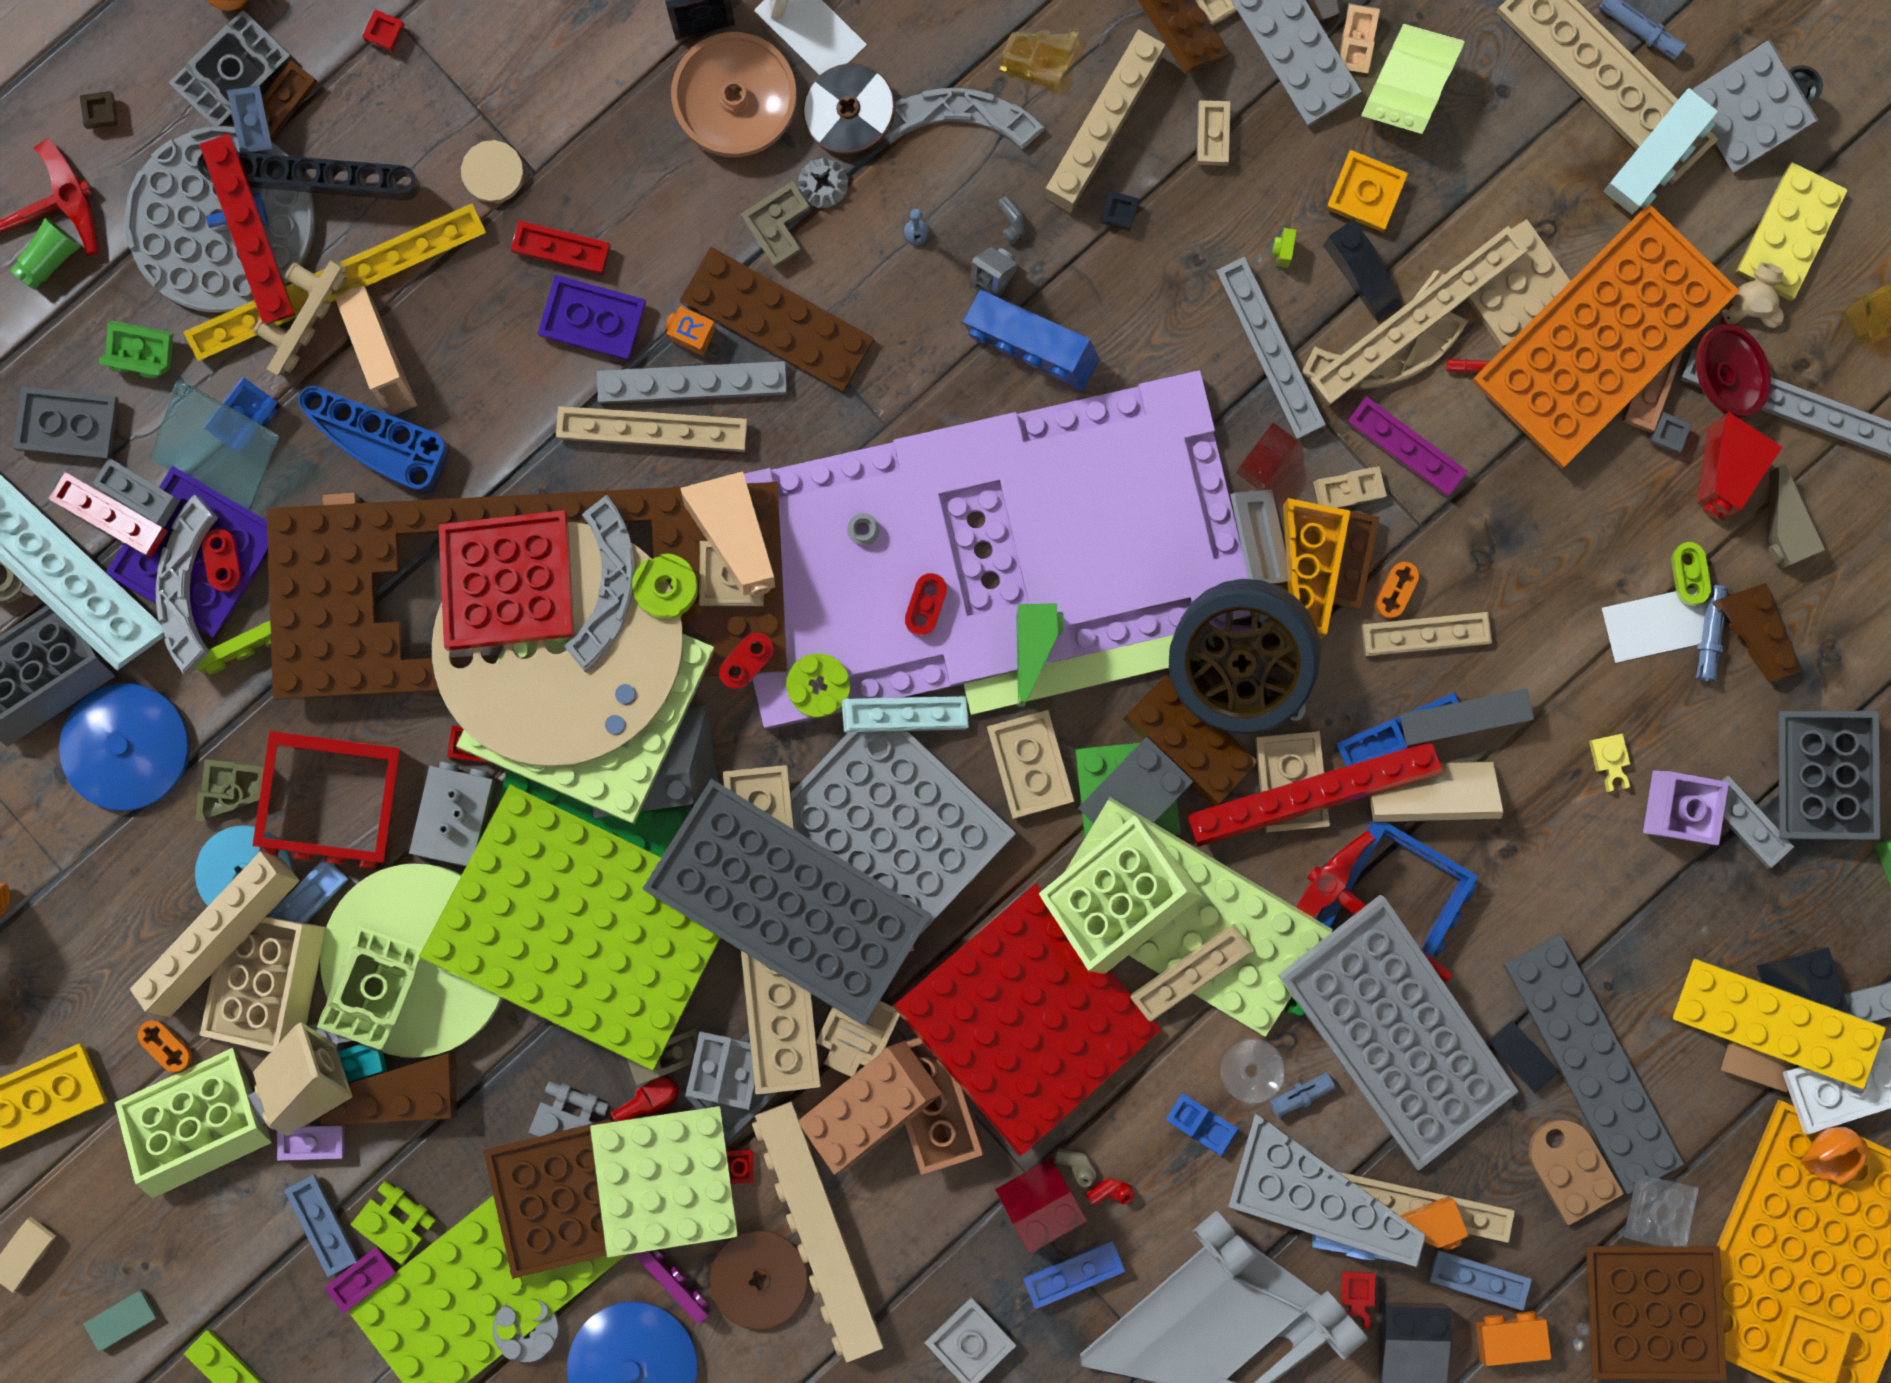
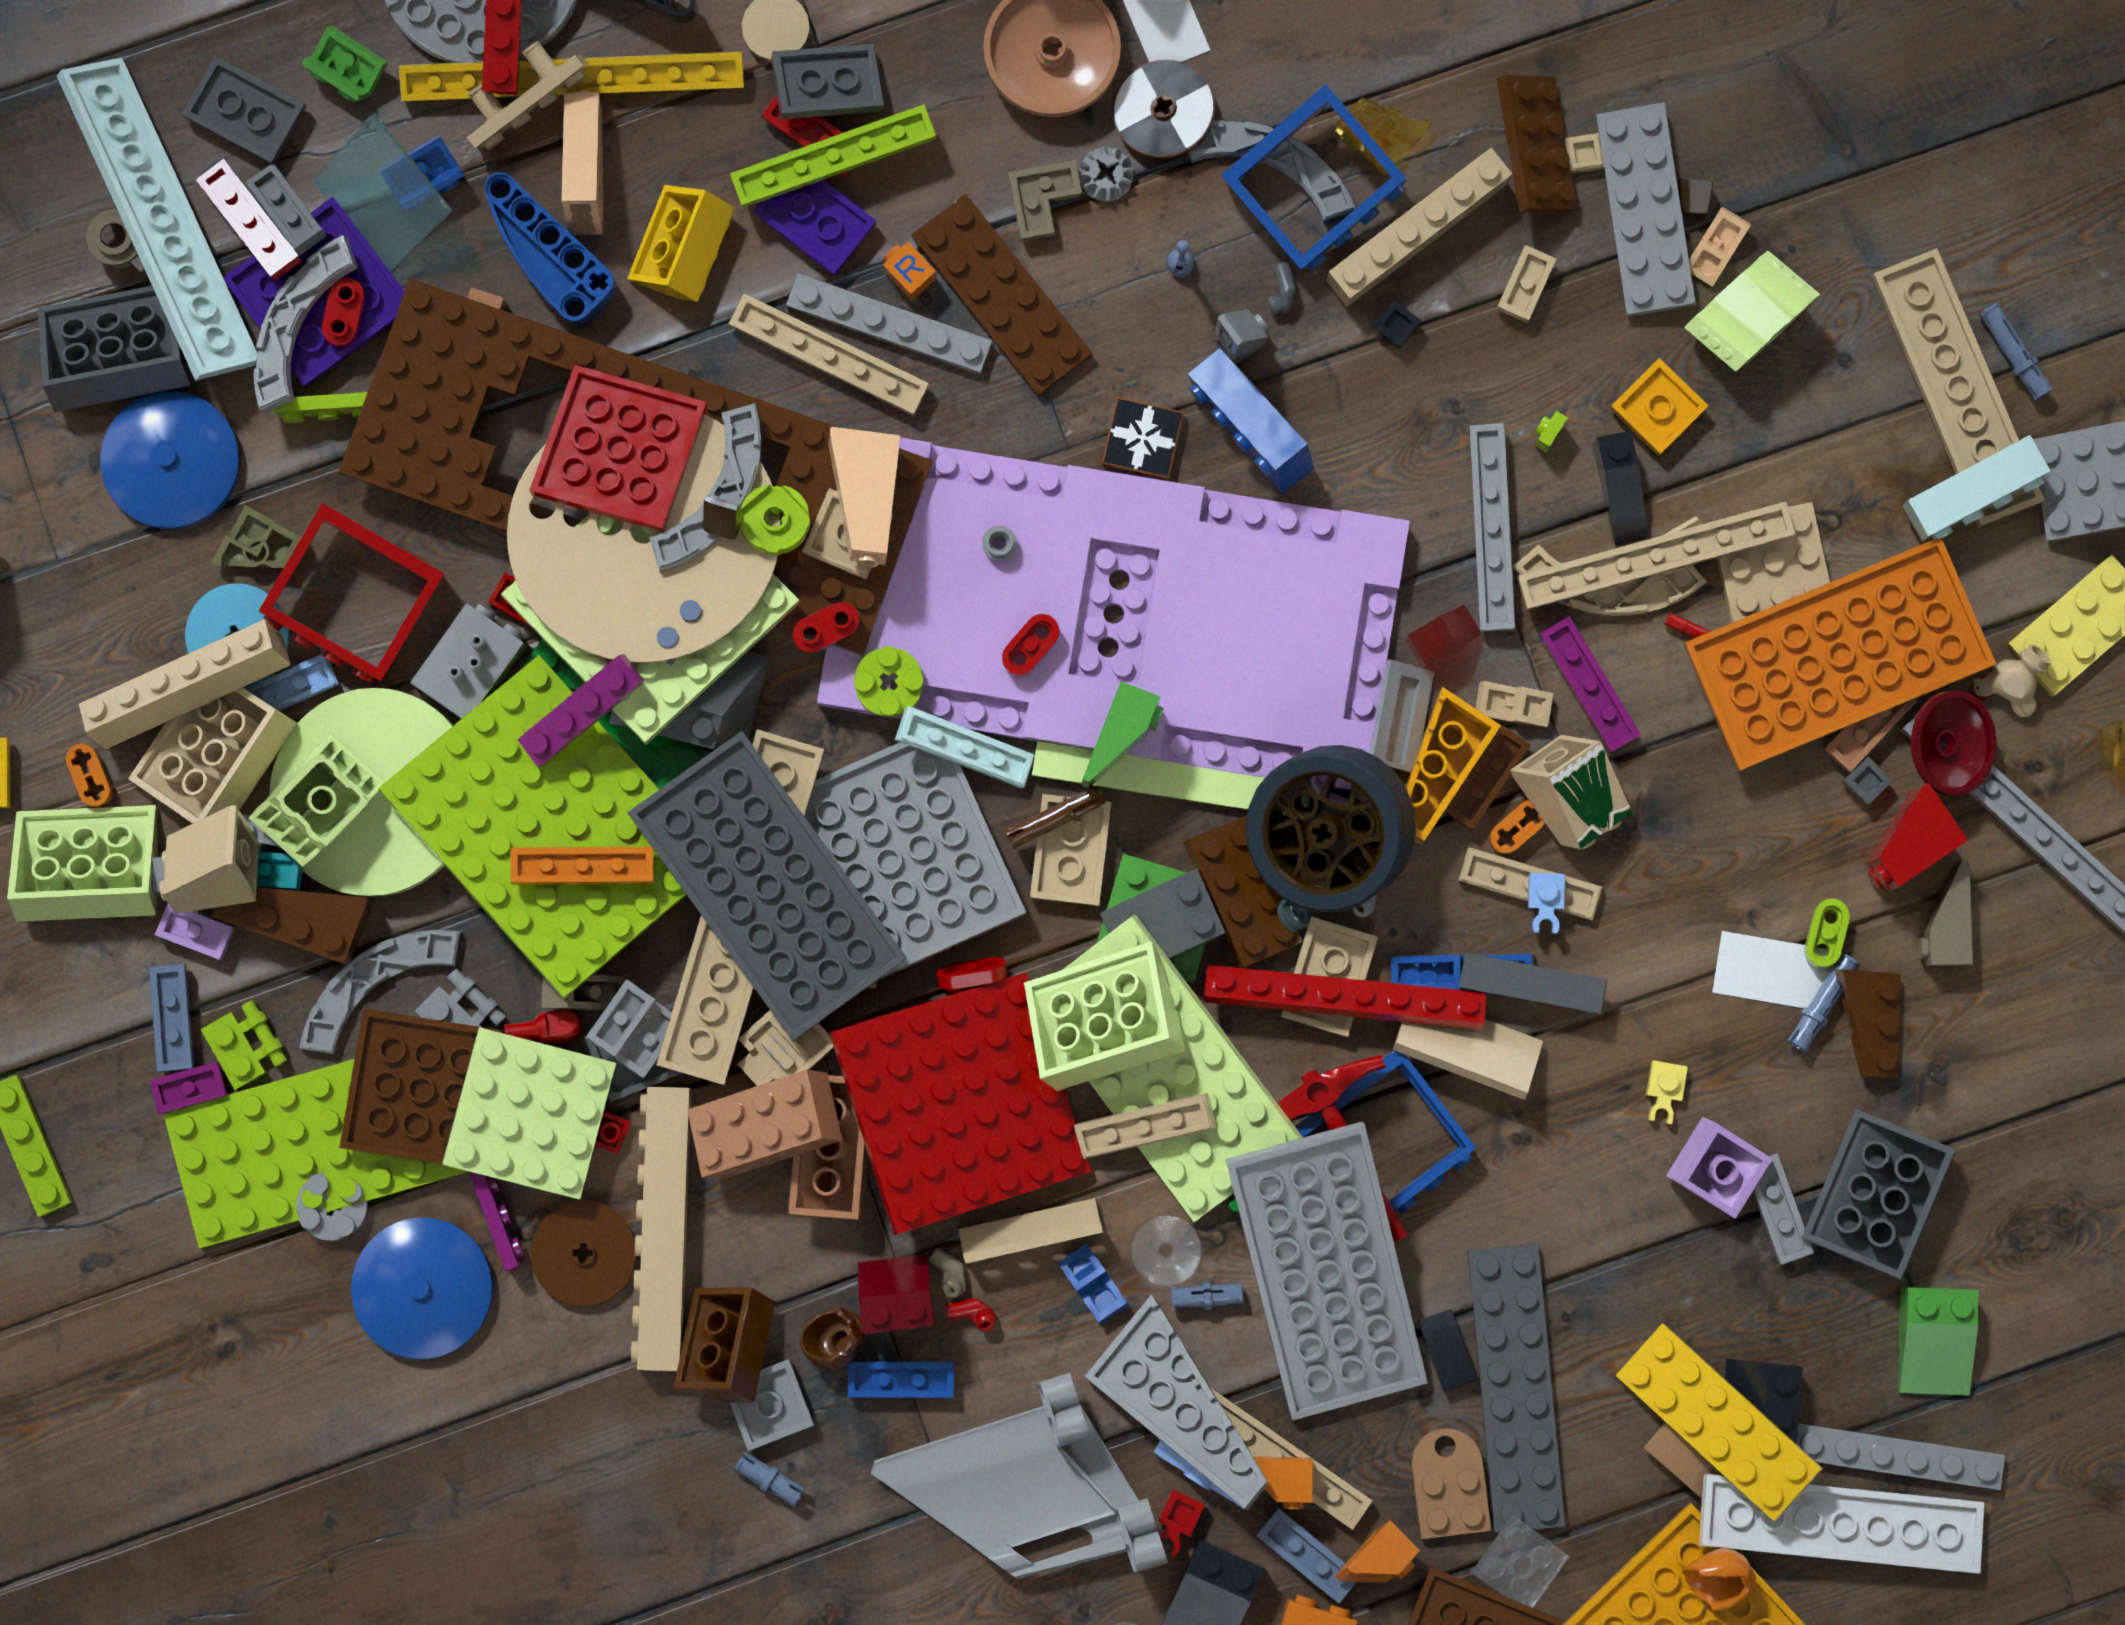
camera: 25 degrees right, 0 degrees up
(473, 1117) = (366, 973): none -> light grey tile
(487, 384) = (681, 242): none -> yellow slope
(555, 198) = (827, 81): none -> dark grey plate
(566, 817) = (581, 710): none -> magenta plate
(586, 259) = (833, 156): none -> lime plate
(619, 603) = (721, 517): none -> dark brown slope
(621, 951) = (581, 865): none -> orange plate
(912, 1308) = (724, 1344): none -> reddish brown slope
(946, 392) = (1142, 438): none -> black tile
(990, 903) = (965, 974): none -> red plate
(1002, 1264) = (832, 1338): none -> reddish brown hair
(1006, 741) = (1055, 816): none -> reddish brown axle
(1054, 128) = (1277, 137): none -> blue window
(1131, 1102) = (1030, 1230): none -> tan fence
(1241, 743) = (1292, 916): none -> clear light blue tile
(1431, 540) = (1573, 790): none -> tan slope
(1444, 638) = (1546, 895): none -> light blue plate
(1541, 1256) = (1380, 1557): none -> orange slope

